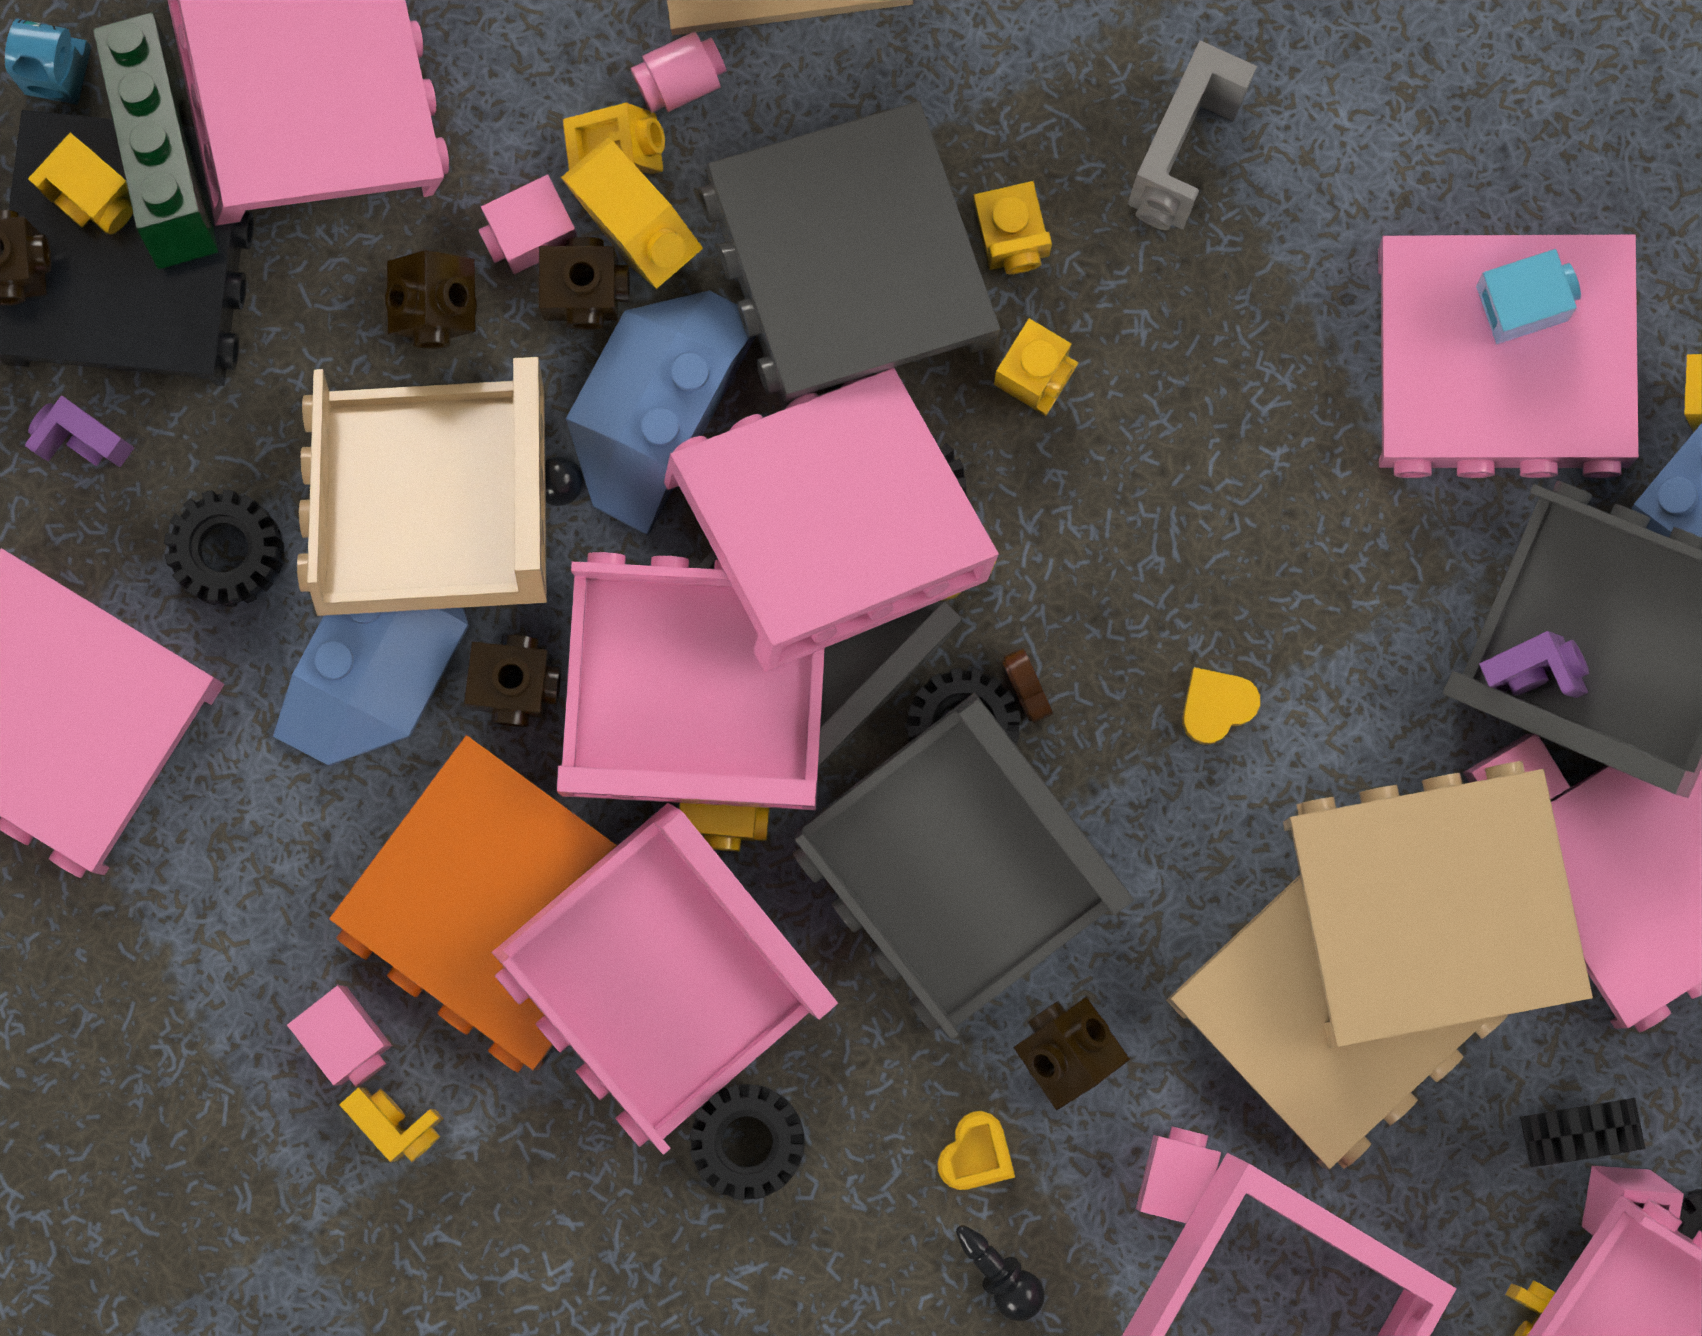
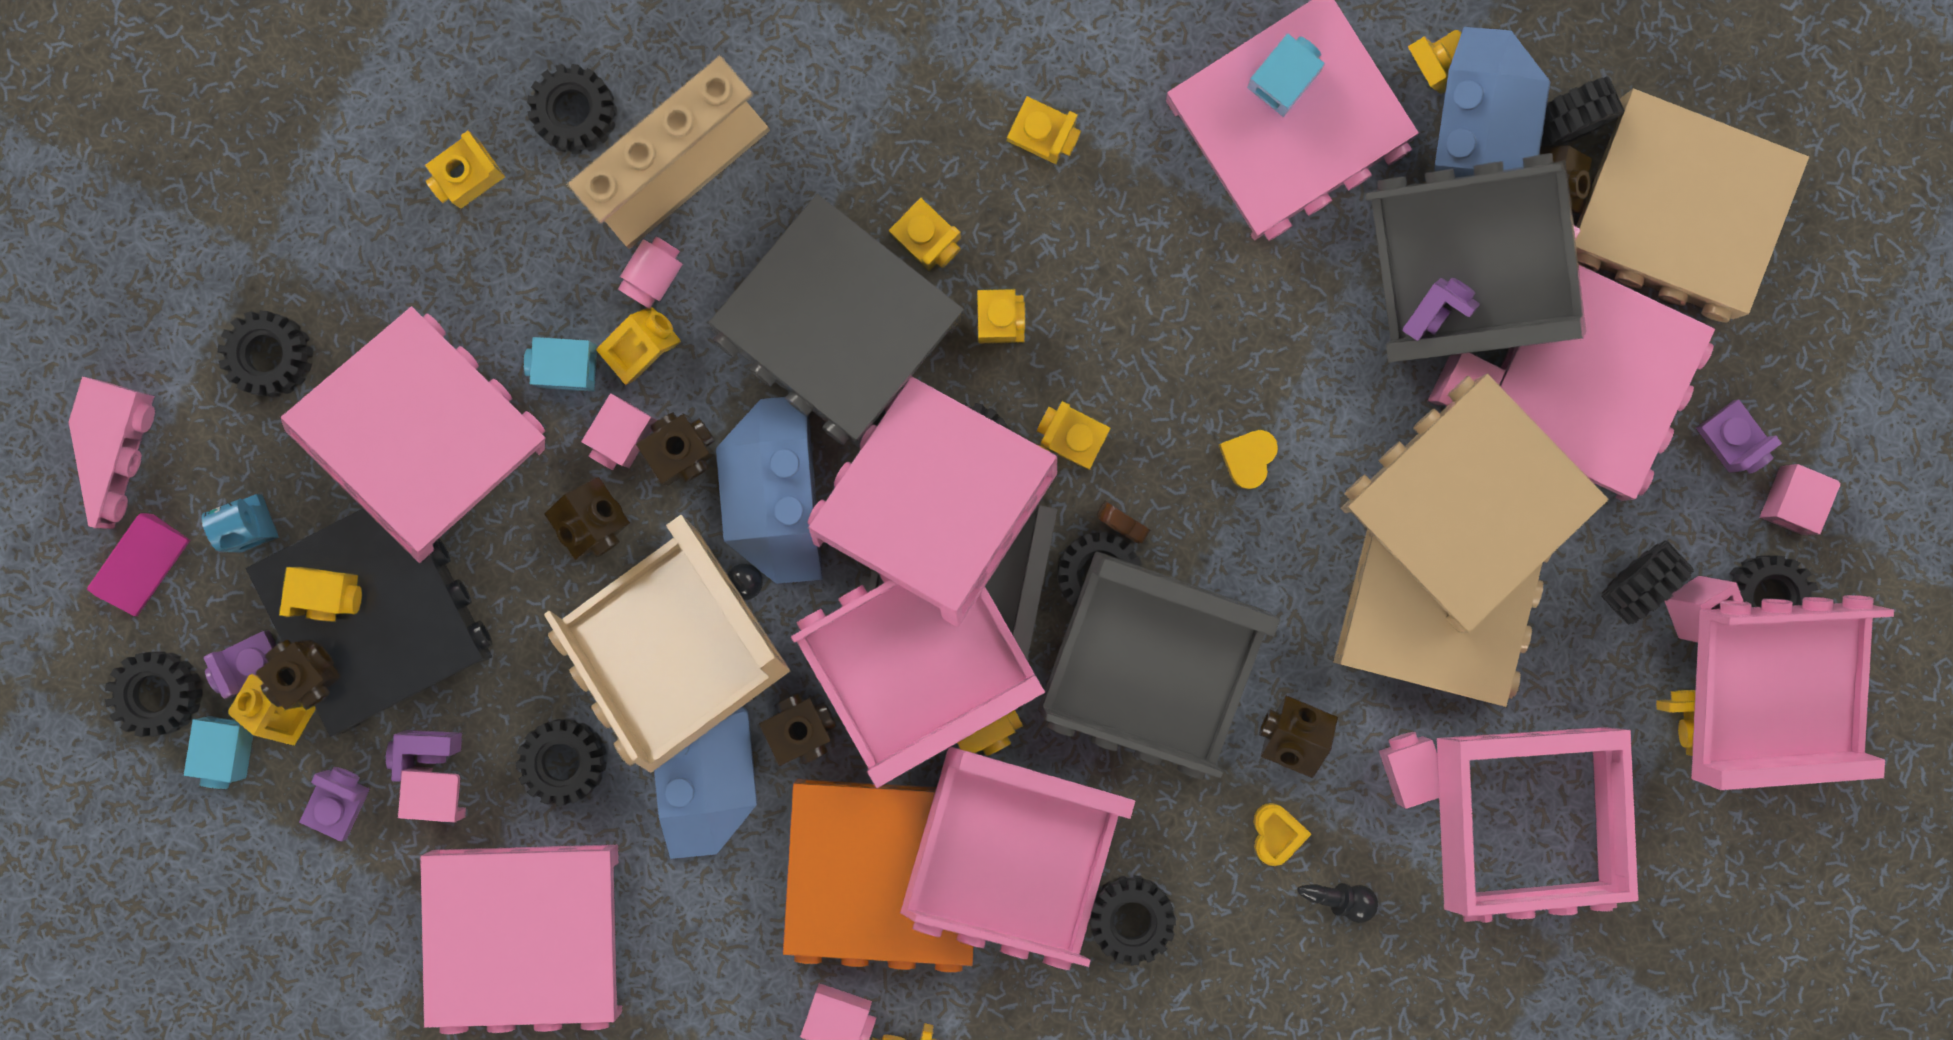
camera: 30 degrees left, 5 degrees up
(55, 490) = (429, 795): none -> bright pink panel
(151, 141) = (357, 551): arch -> none
(514, 111) = (561, 364): none -> medium azure brick
(632, 213) = (680, 384): yellow slope -> none
(1033, 550) = (1072, 434): none -> yellow bracket
(1211, 82) = (995, 61): light grey panel -> none
(1224, 197) = (1044, 130): none -> yellow bracket

